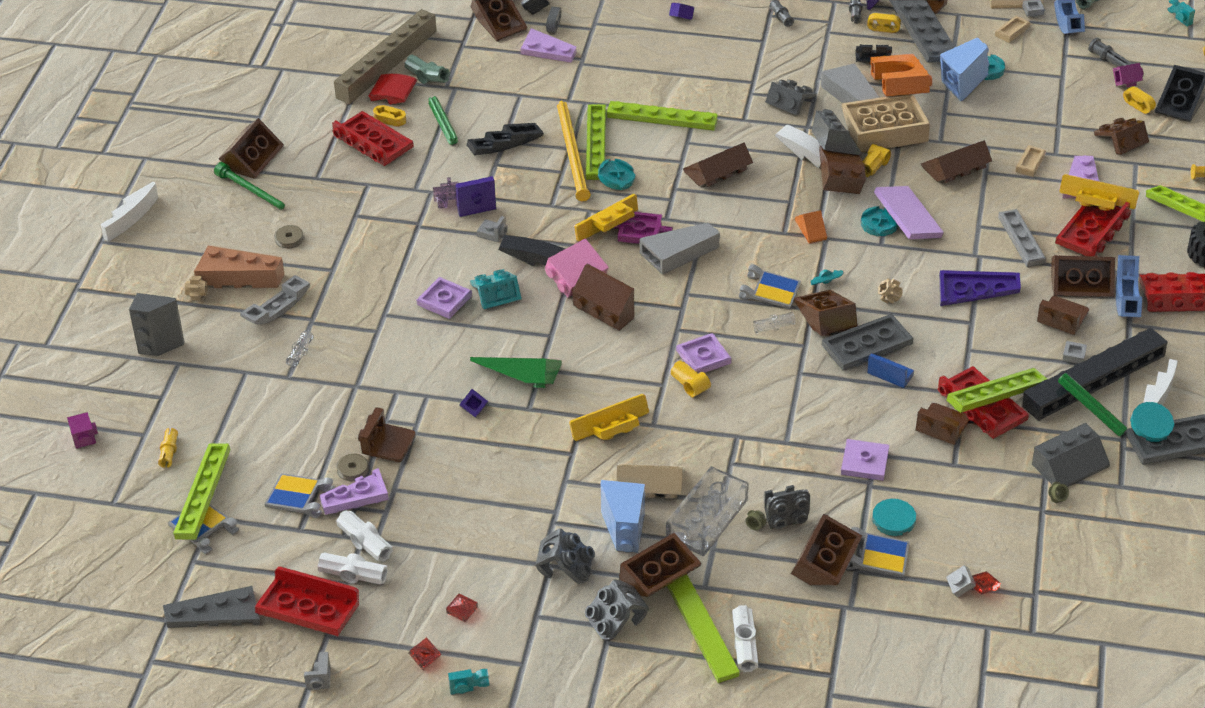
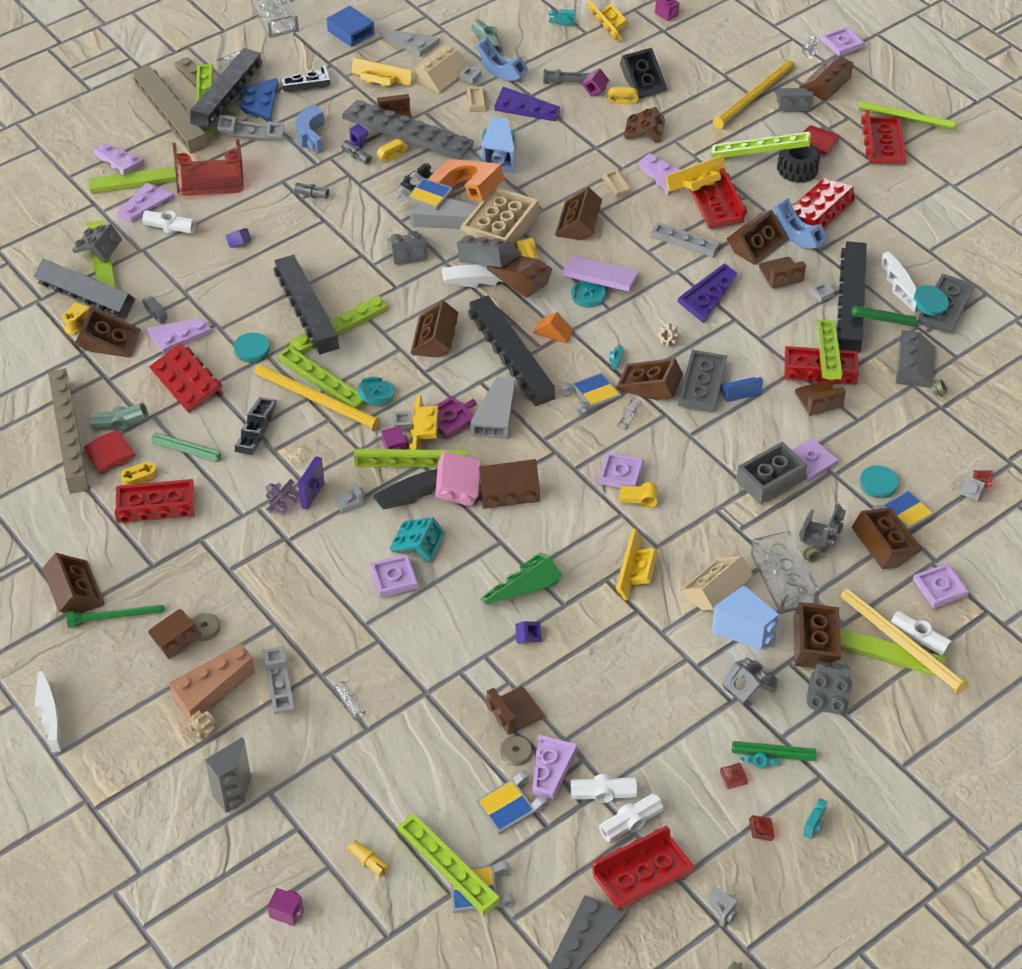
camera: 50 degrees left, 5 degrees up
(259, 224) = (175, 633): none -> reddish brown bracket
(494, 615) = (760, 760): none -> teal piece
(508, 76) = (185, 377): none -> red bracket
(514, 617) = (771, 750): none -> green axle
(563, 227) = (400, 458): none -> lime tile
(574, 213) = (394, 439): none -> magenta brick
(581, 88) = (251, 347): none -> teal tile
(601, 203) = (402, 419): none -> light grey plate
(651, 82) = (306, 305): none -> black brick
(707, 691) = (904, 641): none -> yellow axle
(752, 217) = (511, 351): none -> black brick
(809, 440) = (771, 472): none -> dark grey brick
(819, 623) = (940, 585): none -> lavender plate
(855, 66) = (425, 193): none -> flag
(1045, 57) = (521, 104): none -> dark purple wing

